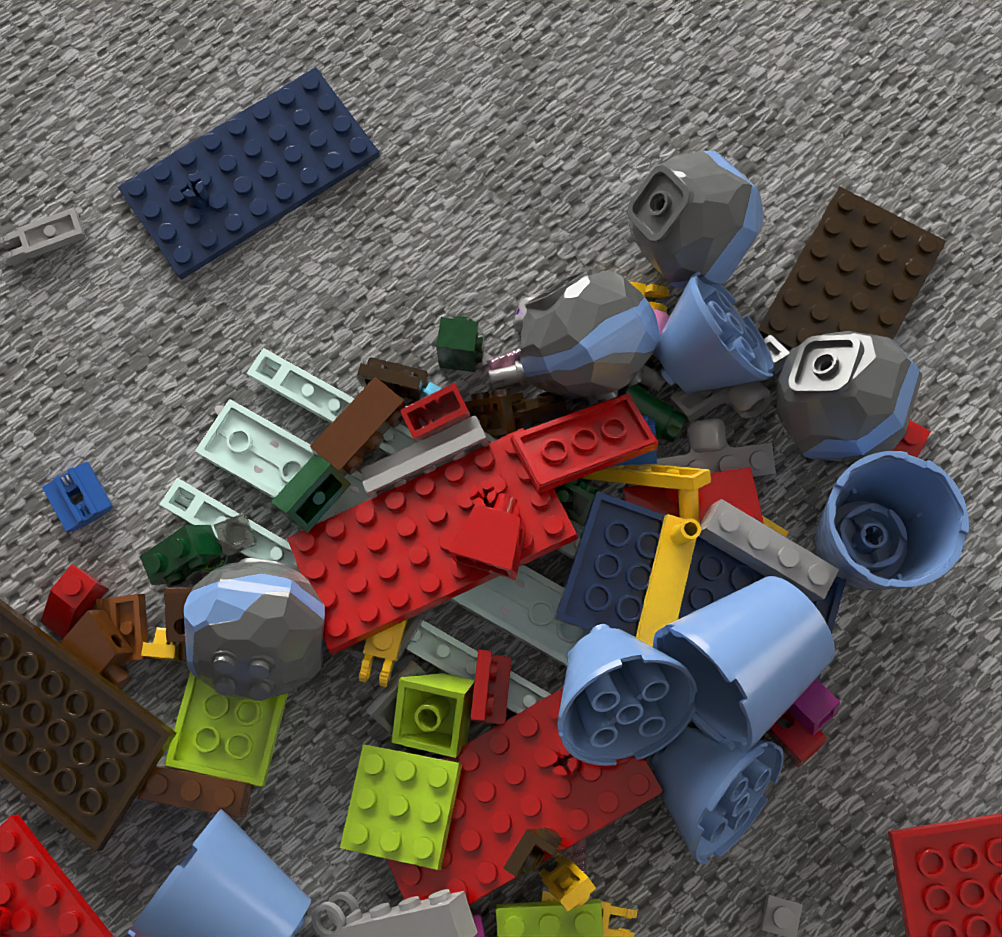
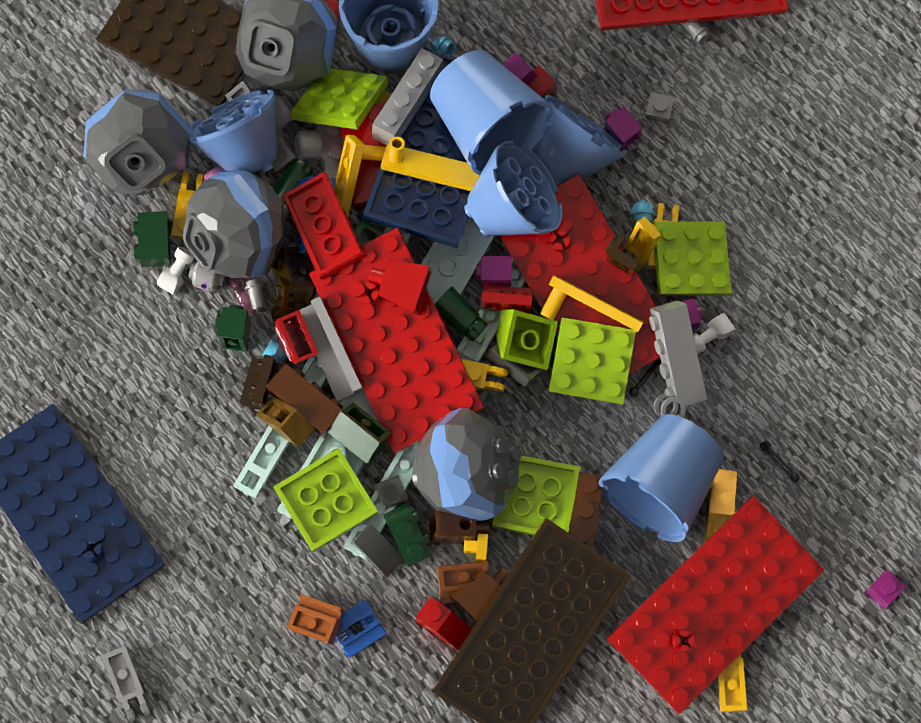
camera: 90 degrees left, 0 degrees up
(88, 446) = (316, 619): none -> dark orange plate
(169, 515) = (377, 550): none -> dark grey slope
(231, 454) = (325, 500): none -> lime plate
(329, 401) = (286, 421): none -> pearl gold slope
(367, 865) = (634, 390): none -> black hinge
(467, 624) = (460, 314): none -> dark green plant
(497, 767) = (564, 288): none -> yellow piece
(528, 672) = (494, 270): none -> magenta brick
(531, 276) = (171, 278): none -> white leg
(578, 251) = (153, 239): none -> dark green brick
(621, 885) = (641, 210): none -> medium azure plate
(747, 860) = (622, 127): none -> magenta brick
(768, 471) = (340, 98): none -> lime plate
(852, 610) = (443, 45): none -> medium azure plate

